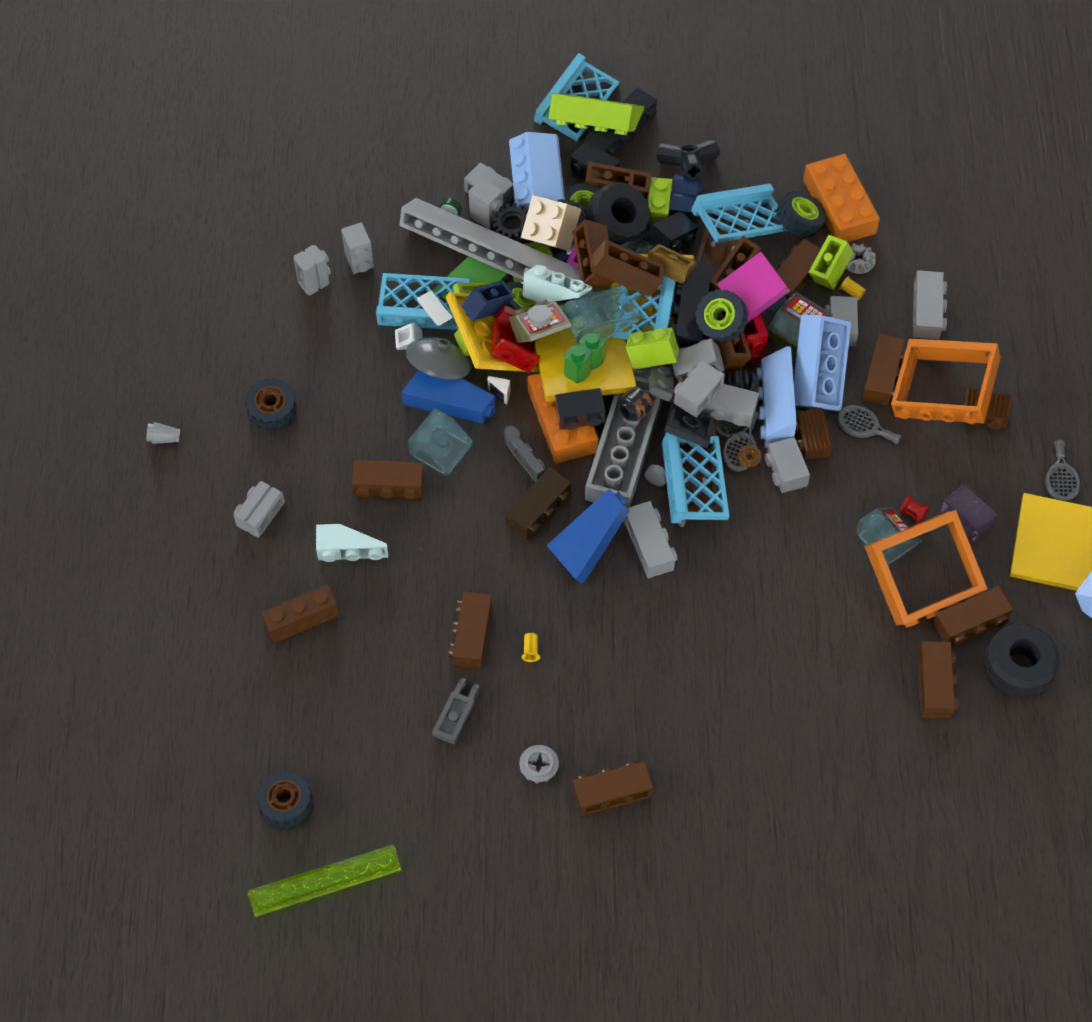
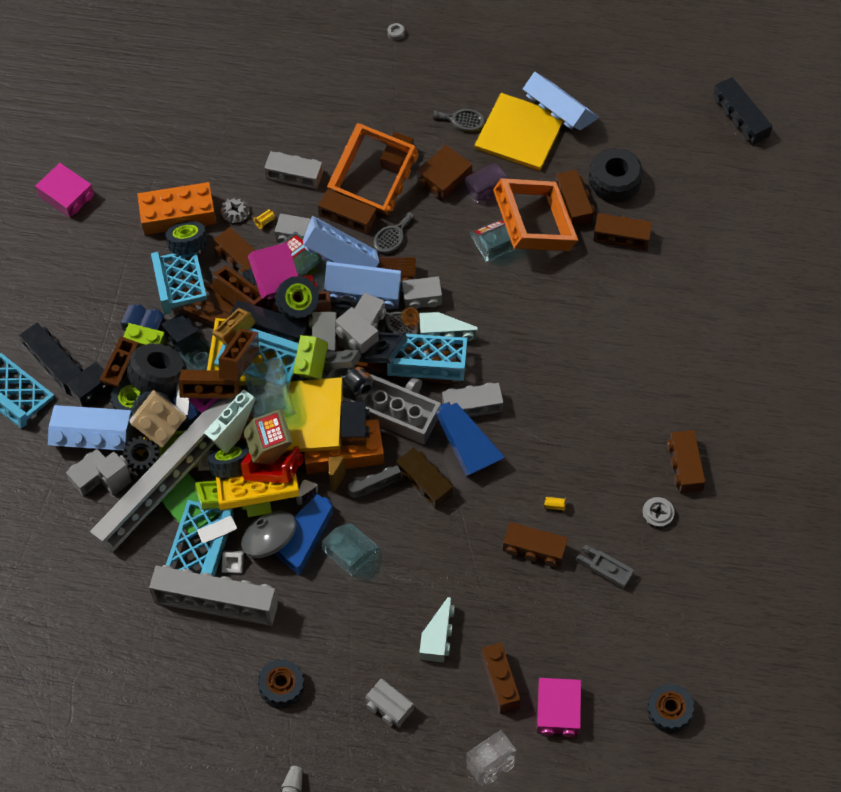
camera: 80 degrees left, 0 degrees up
(200, 612) = (491, 758): none -> clear brick
(272, 679) = (558, 707): none -> dark pink brick
(312, 269) = (148, 628): light grey brick -> none
(324, 880) = (744, 684): clear neon green plate -> none
(357, 248) = (134, 586): light grey brick -> none
(358, 321) = (214, 595): none -> light grey brick
(387, 479) = (379, 593): reddish brown brick -> none
(451, 205) = (103, 506): dark green tile -> none
(487, 300) = (236, 474): dark blue brick -> none
(522, 408) = (336, 471): none -> pearl gold slope
(539, 315) = (269, 430): light grey tile -> none
(584, 357) = (309, 408): green brick -> none
(594, 112) = (42, 368): lime slope -> none
(688, 156) = (105, 309): black piece -> none
(743, 487) = (443, 325): none -> light aqua slope
(831, 262) = (241, 224): lime brick -> none
(838, 91) = (64, 190): none -> dark pink brick
(914, 509) = (476, 217): red bush -> none
(970, 463) = (444, 172): none -> reddish brown brick

